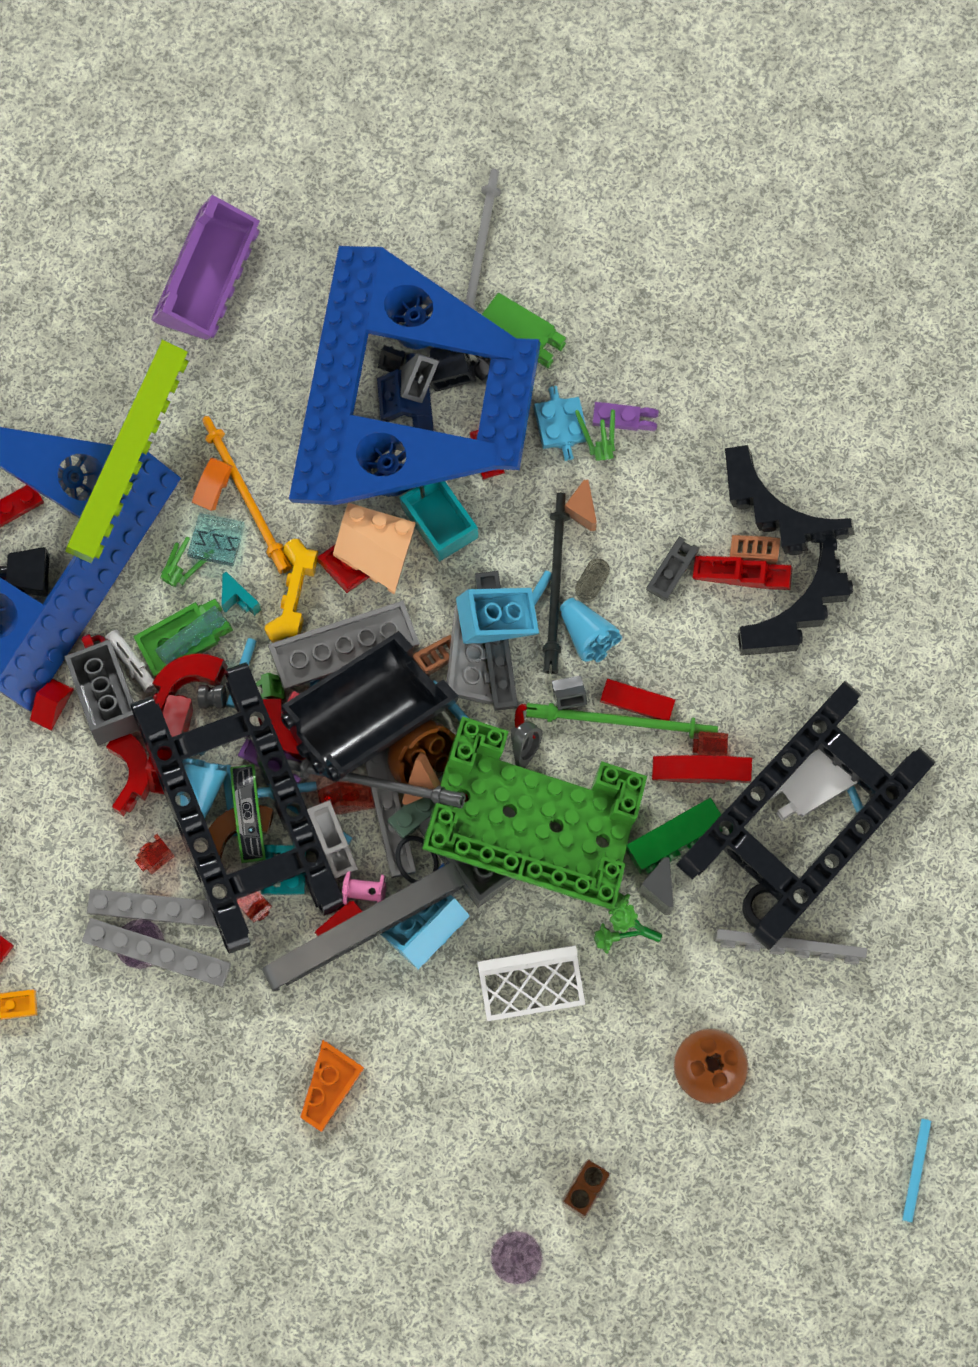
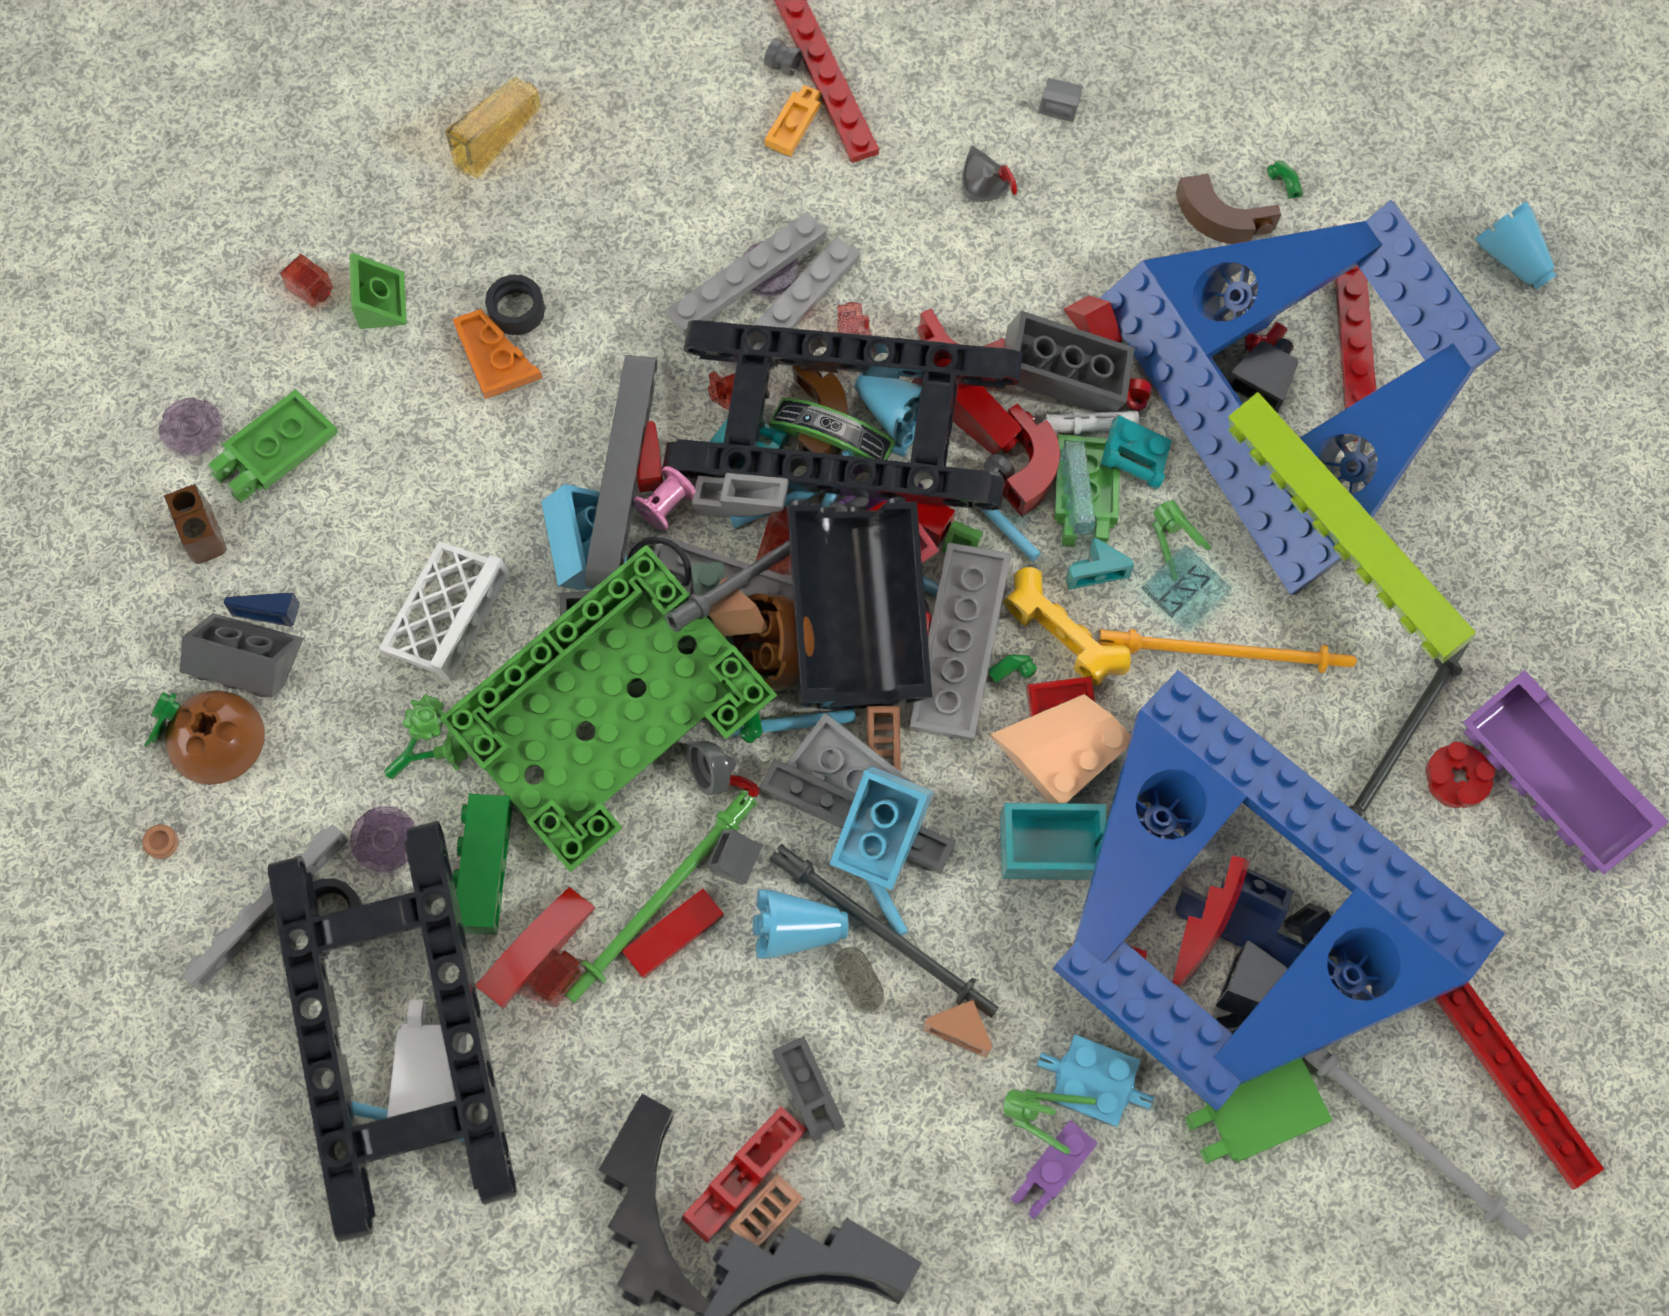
camera: 120 degrees right, 5 degrees down
(130, 620) = (1140, 445): none -> teal plate
(142, 1218) = (491, 125): none -> clear yellow slope
(211, 483) = (1262, 619): orange slope -> none
(236, 316) = (1462, 794): none -> red plate
(264, 1087) = (511, 284): none -> black tyre
(306, 368) = (1448, 668): none -> pearl dark grey bar
(333, 1200) = (376, 293): none -> bright green slope
(339, 611) = (1013, 663): none -> green arm
(356, 1259) = (307, 280): none -> clear red brick
(416, 203) = (1520, 1086): none -> red plate
(417, 376) = (1258, 926): dark grey slope -> none
(437, 406) = (1203, 933): none -> red slope
(491, 1186) = (272, 445): none -> bright green tile
(606, 1091) = (268, 608): none -> dark blue slope
(649, 1088) = (239, 655): none -> dark grey slope
(658, 888) = (433, 796): dark grey slope -> none
(700, 909) = (380, 837): none -> clear purple tile
(724, 1098) = (163, 710): none -> green plate
(797, 1046) = (160, 841): none -> nougat tile

